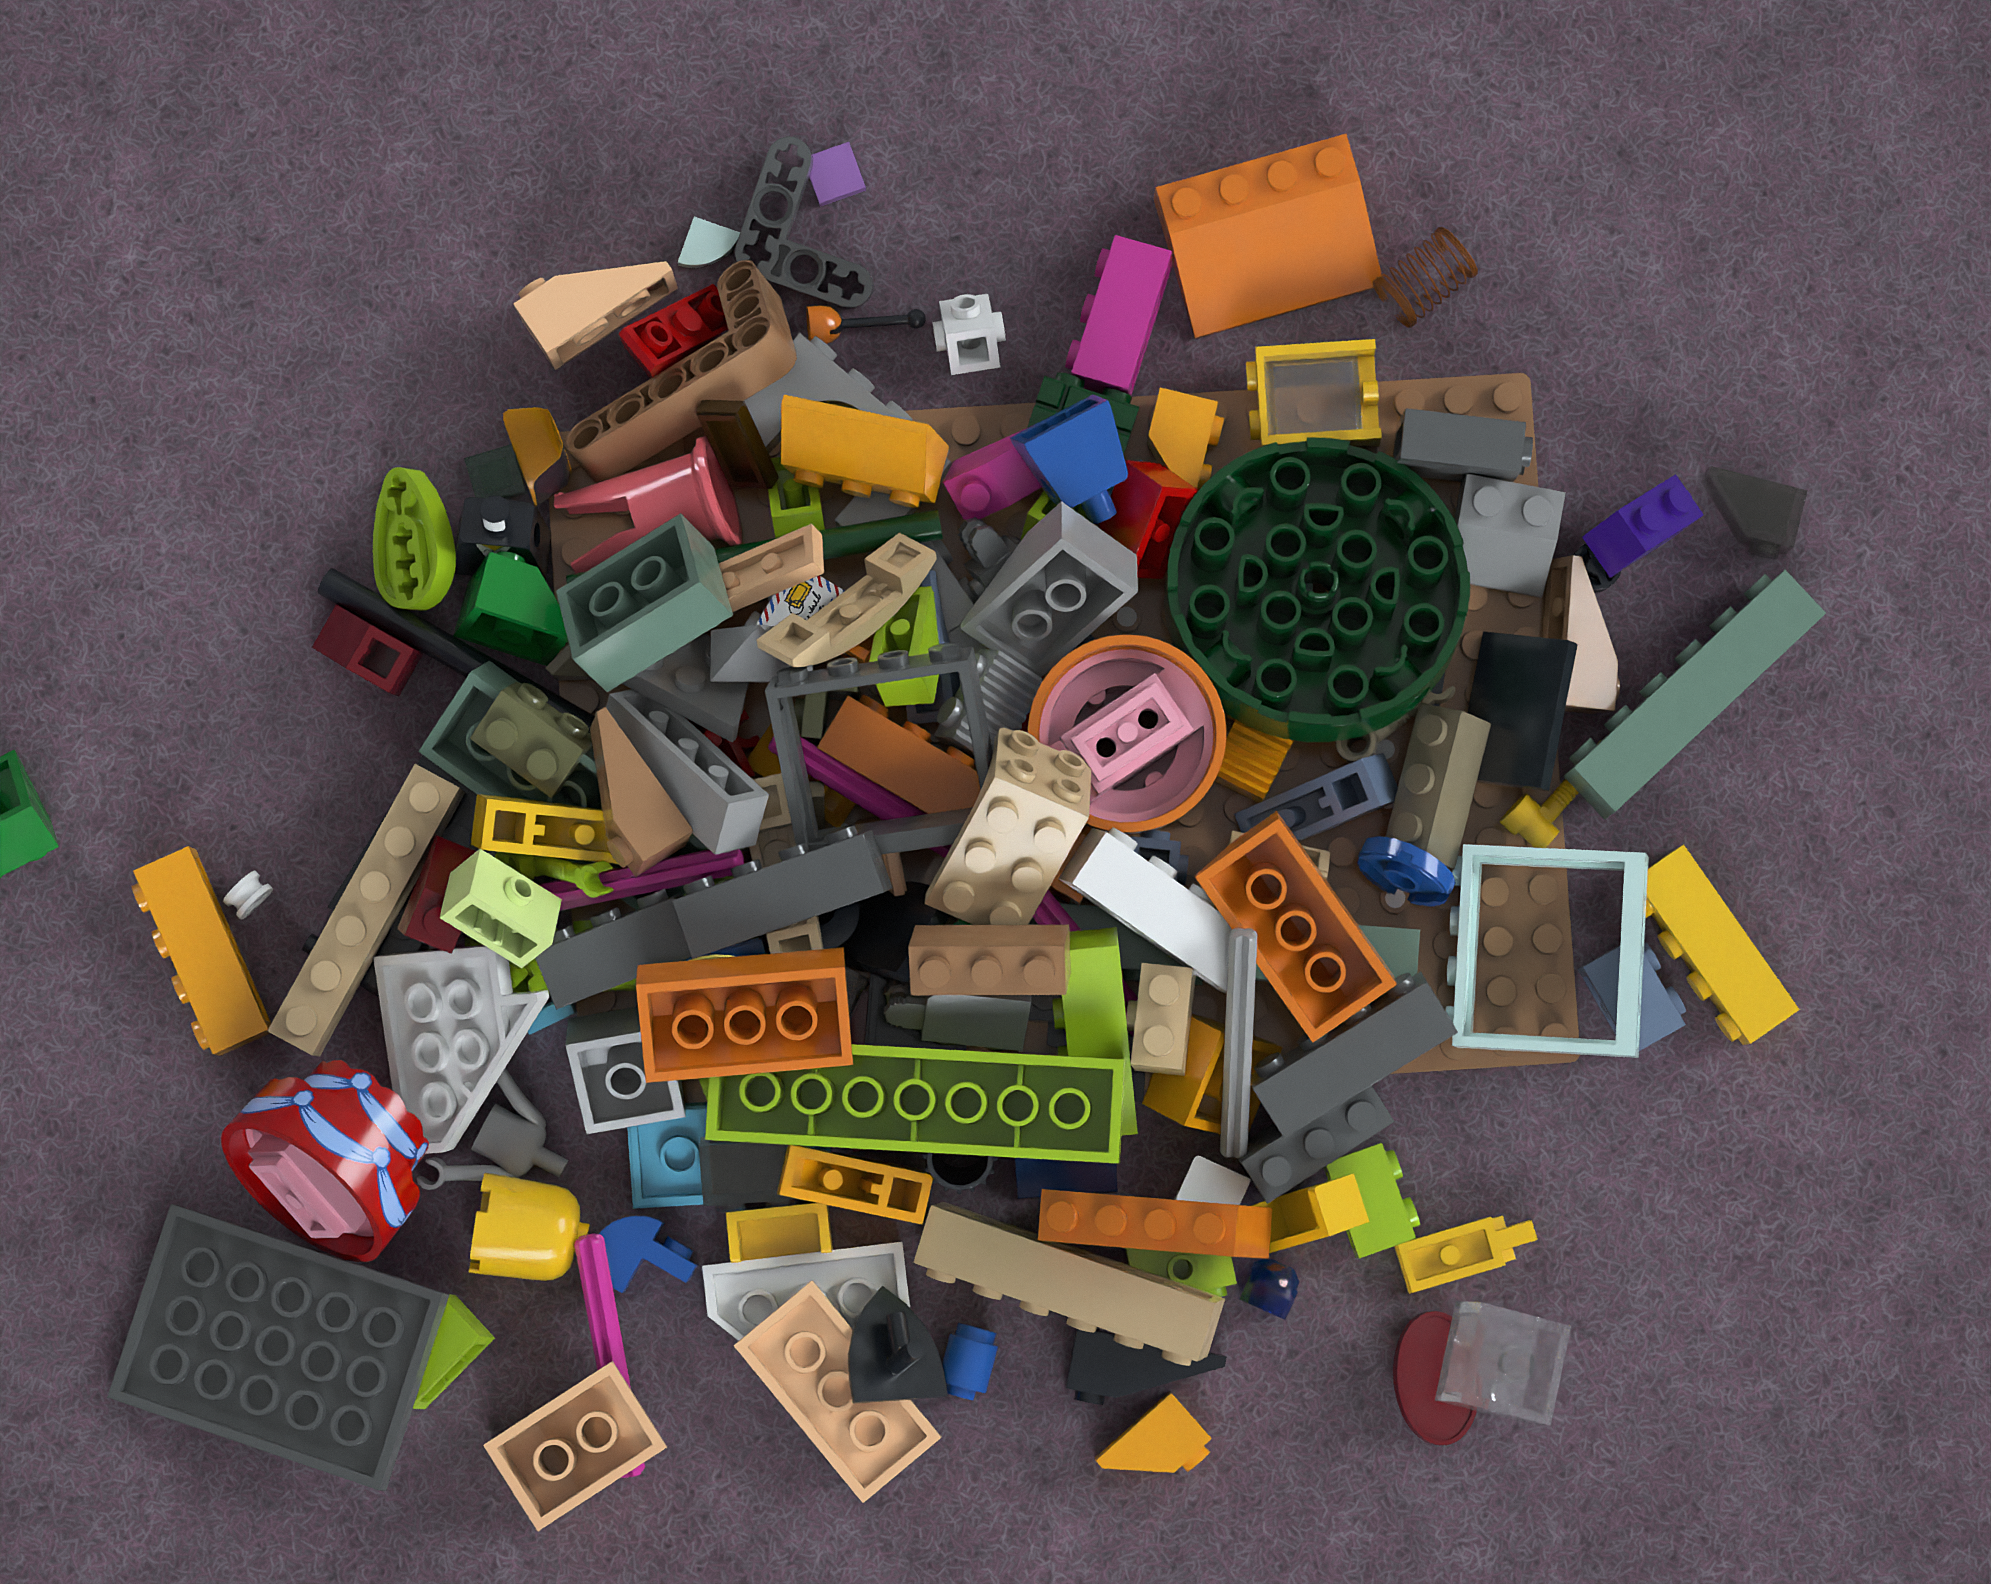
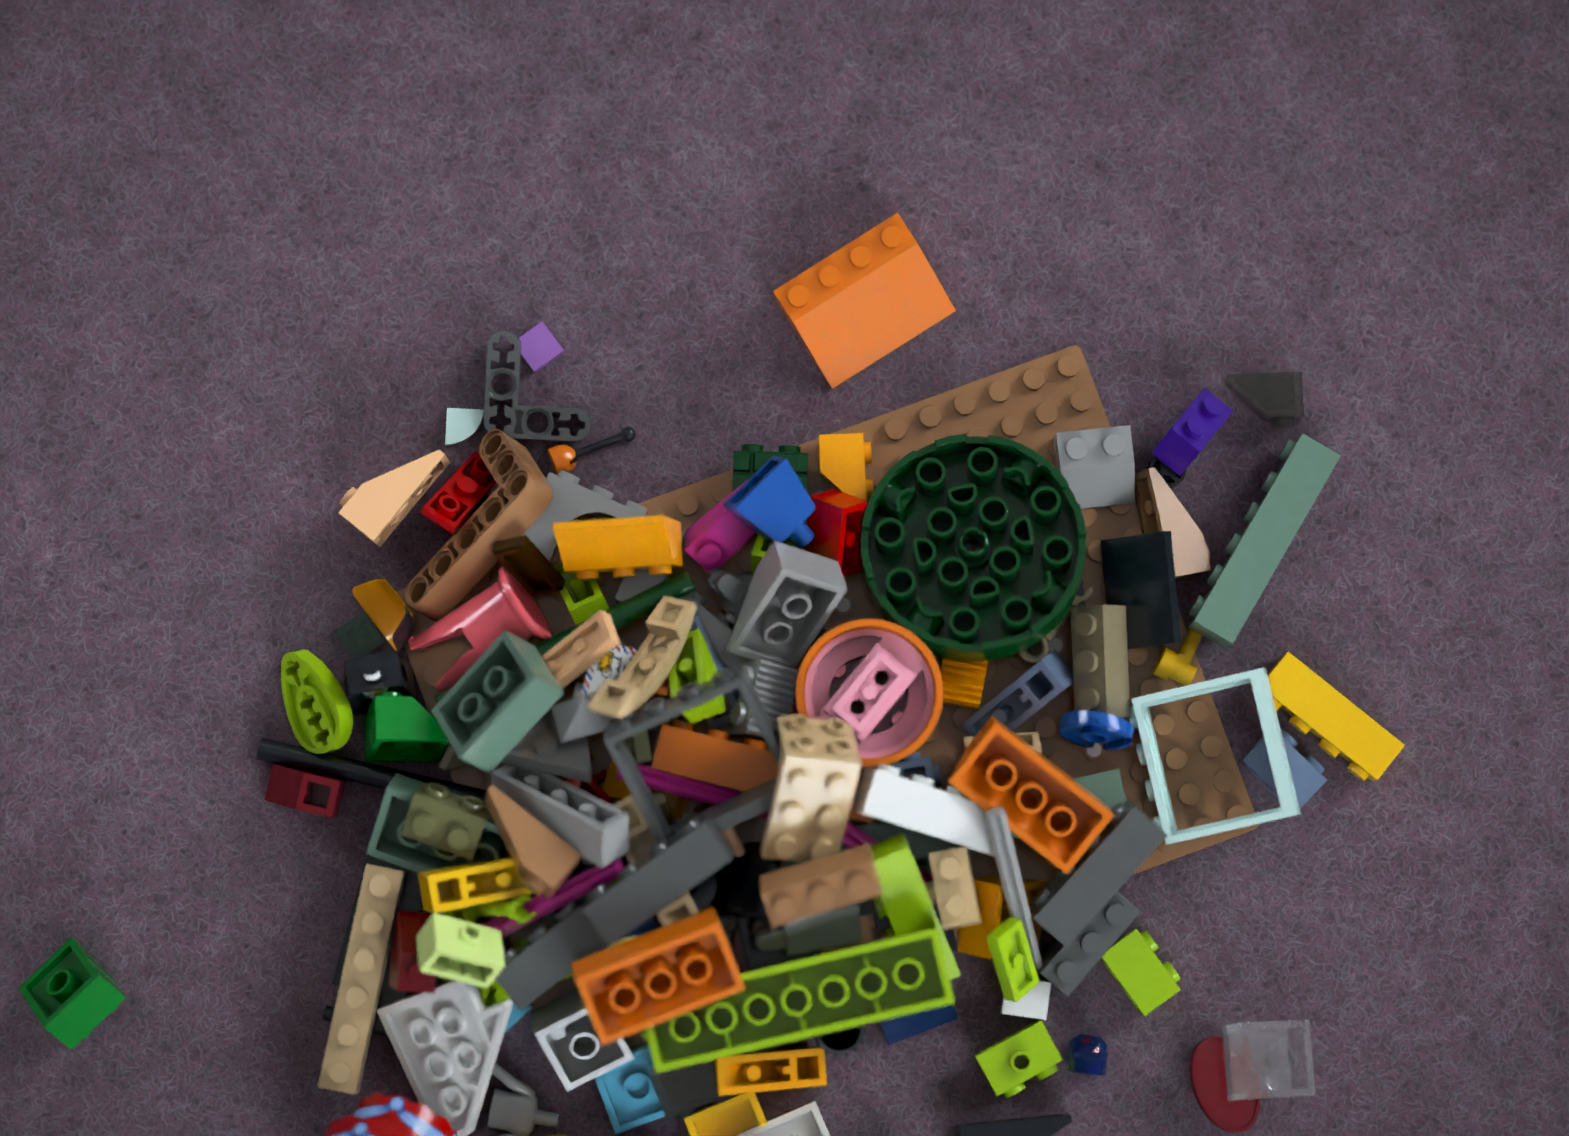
camera: 15 degrees left, 0 degrees up
(202, 951) = (252, 1042): light orange brick -> none
(247, 894) = (272, 991): white bush -> none
(969, 333) = (670, 435): white brick -> none
(1069, 1282) = (943, 1095): tan brick -> none
(1120, 315) = (774, 390): dark pink brick -> none
(1155, 1224) = (992, 1037): orange arch -> none
(1210, 1132) = (1012, 959): none -> lime plate
(1315, 392) = (930, 406): window -> none
(1315, 1212) = (1098, 996): yellow panel -> none
(1408, 310) = (981, 329): dark orange piece -> none
(1458, 445) = (1046, 414): dark grey brick -> none
(1460, 1251) = (1215, 989): yellow hinge -> none

